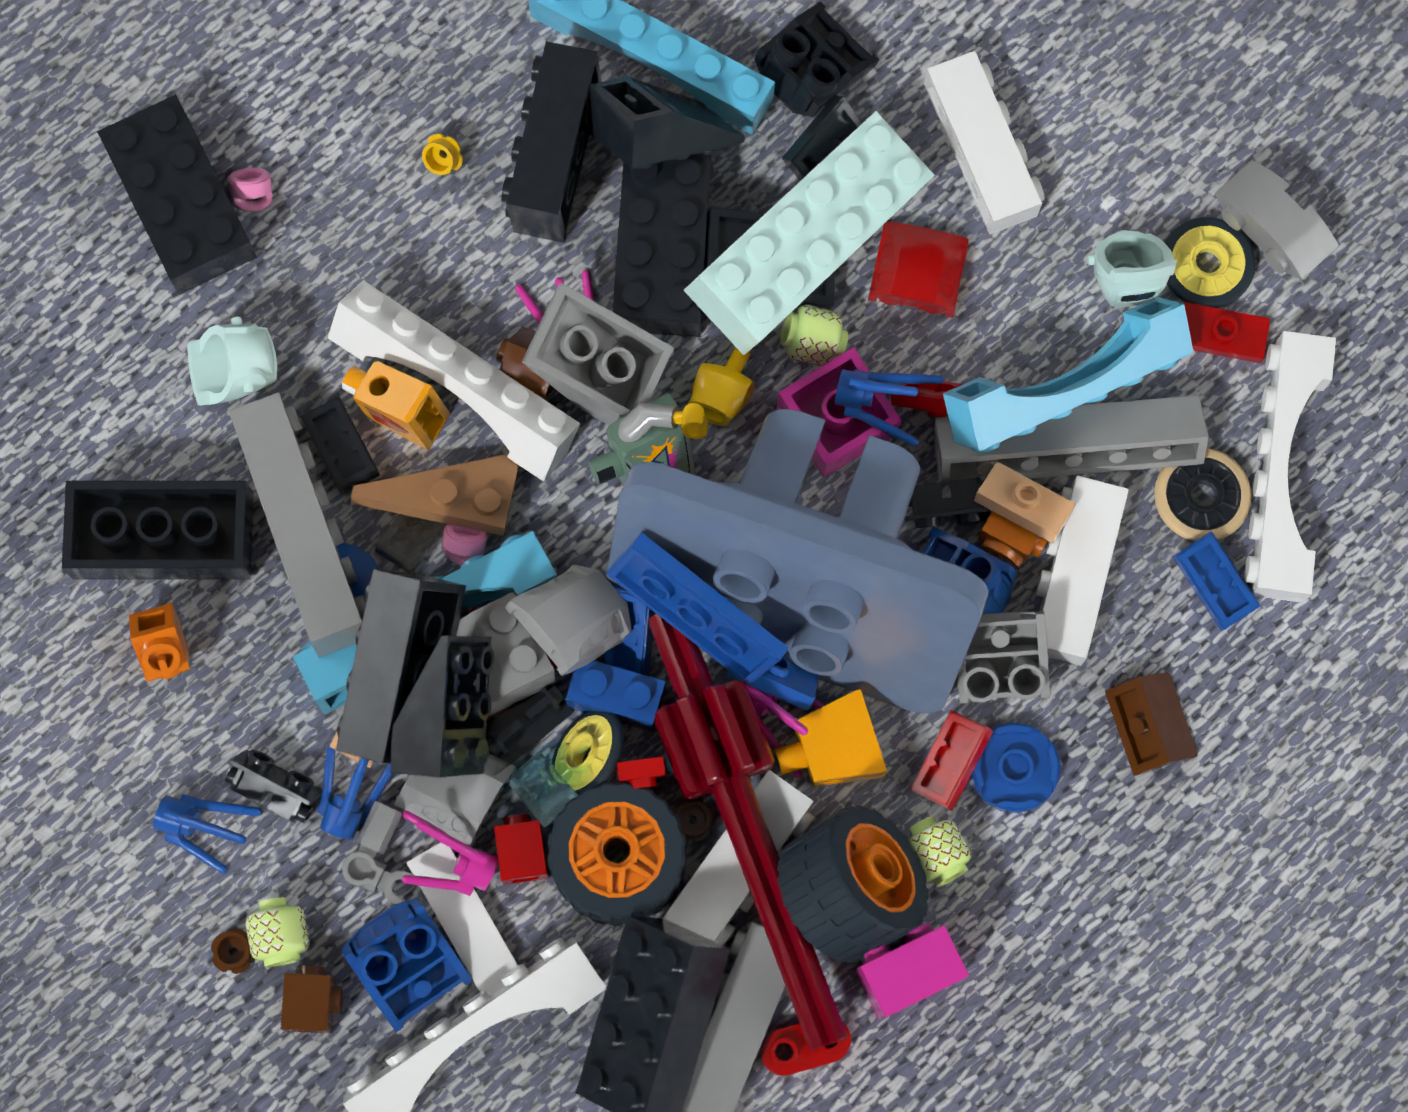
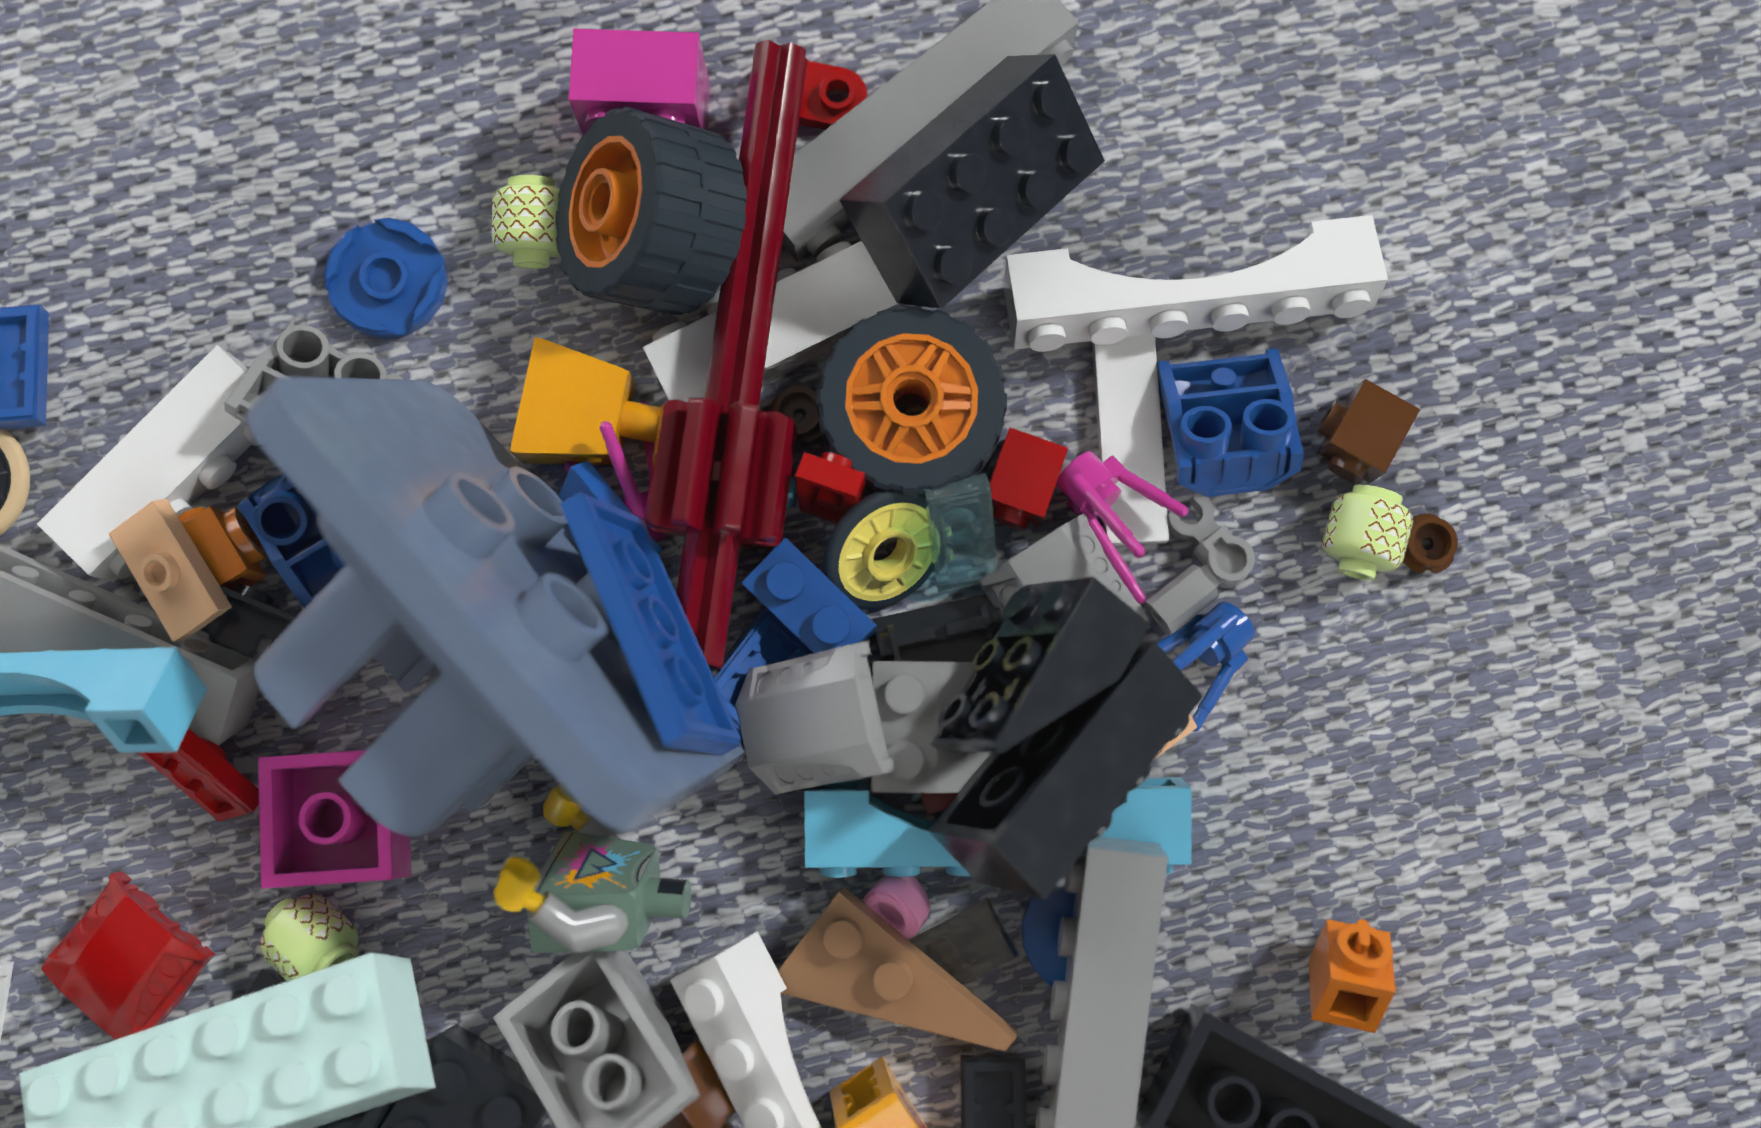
camera: 150 degrees left, 5 degrees up
(180, 818) = (1423, 732): blue plant -> none
(256, 774) = (1299, 745): black hinge -> none
(722, 389) = (466, 934): yellow piece -> none
(858, 388) = (280, 824): blue plant -> none
(951, 760) = (453, 320): plate -> none
(1151, 722) = (197, 242): reddish brown panel -> none

